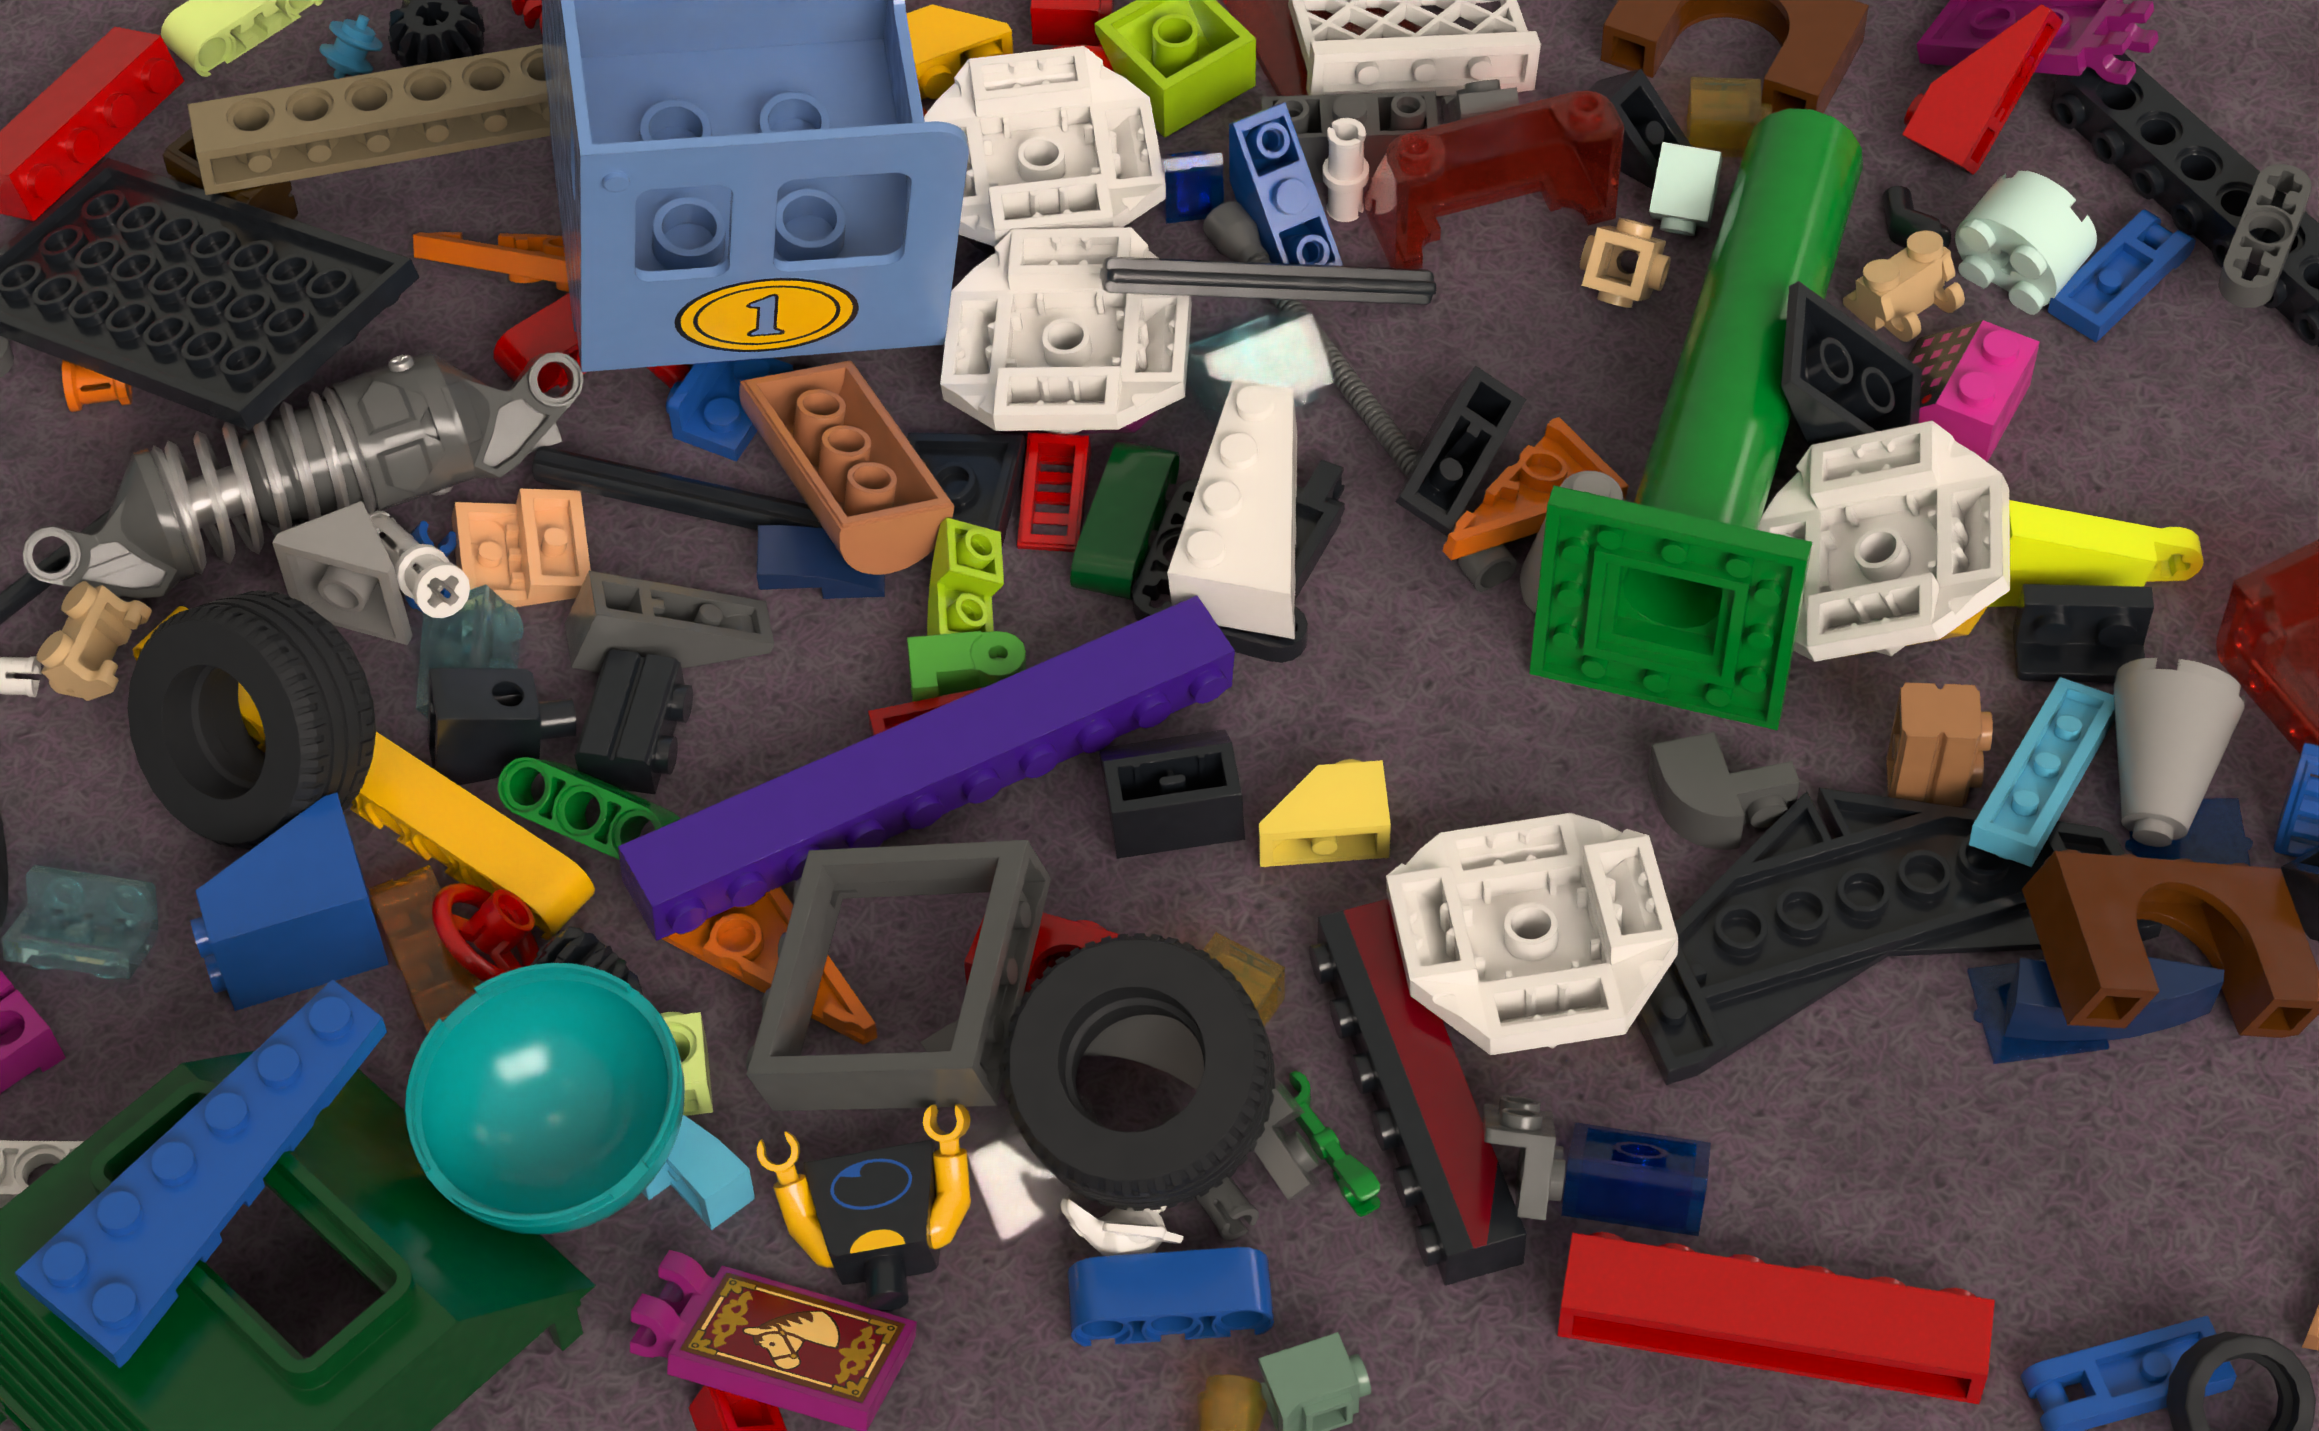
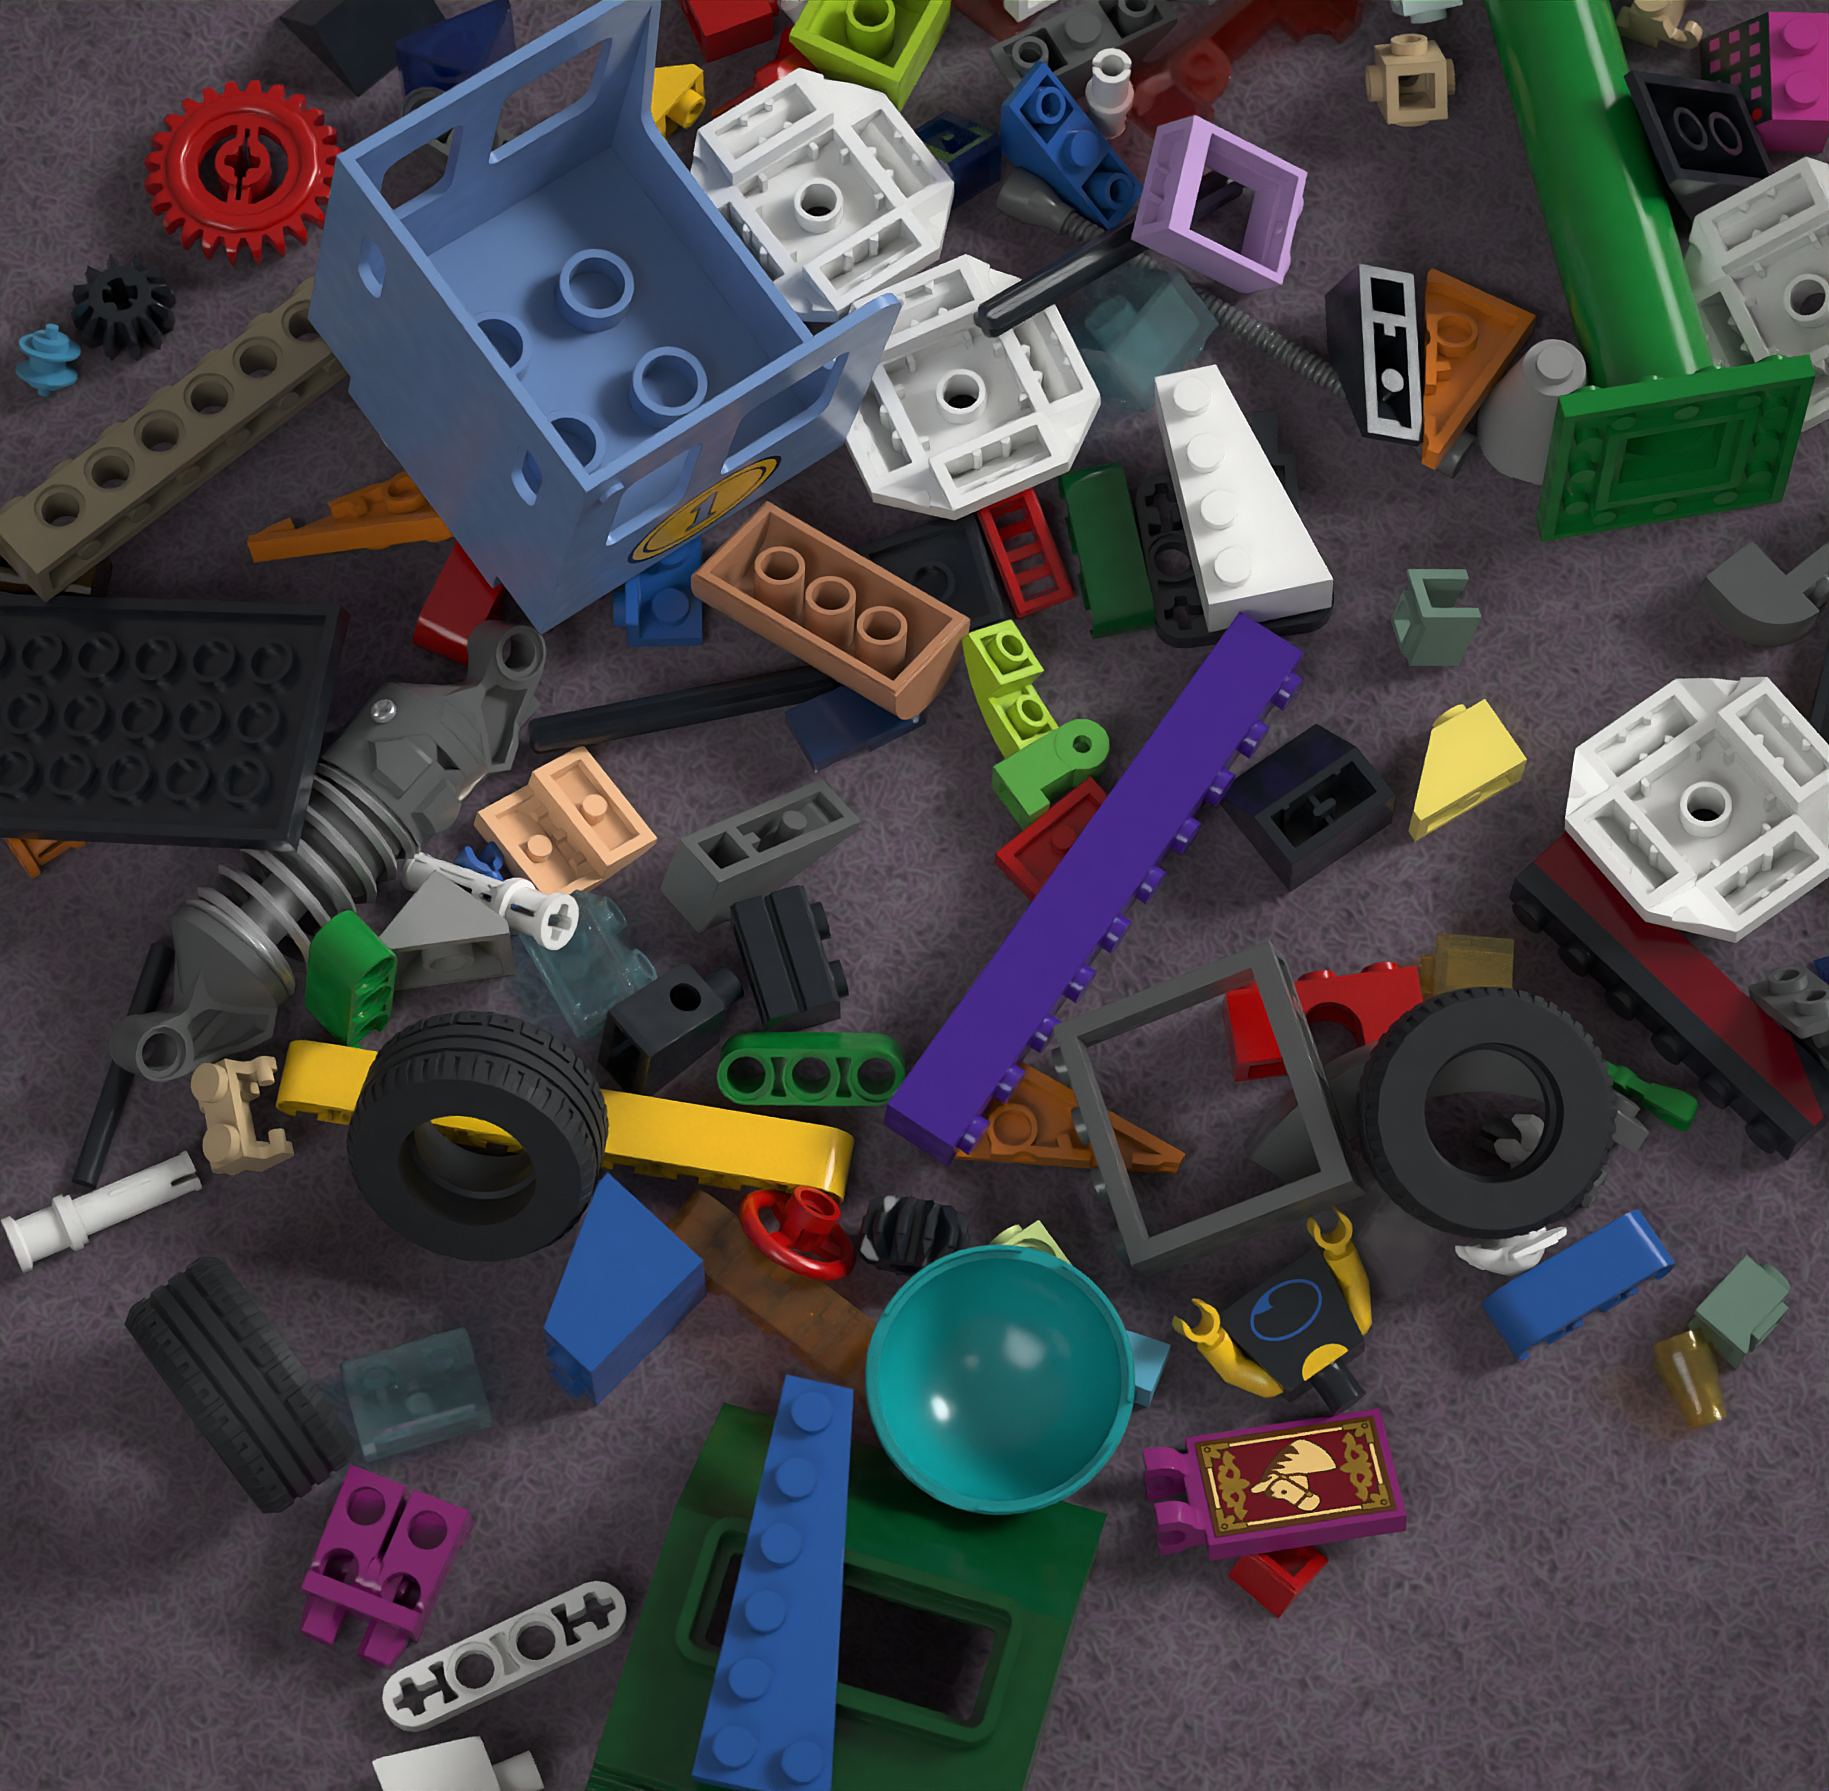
camera: 30 degrees left, 15 degrees up
(240, 542) = (350, 979): none -> green beam
(1380, 680) = (1426, 621): none -> sand green window
(1420, 252) = (1171, 195): none -> lavender window

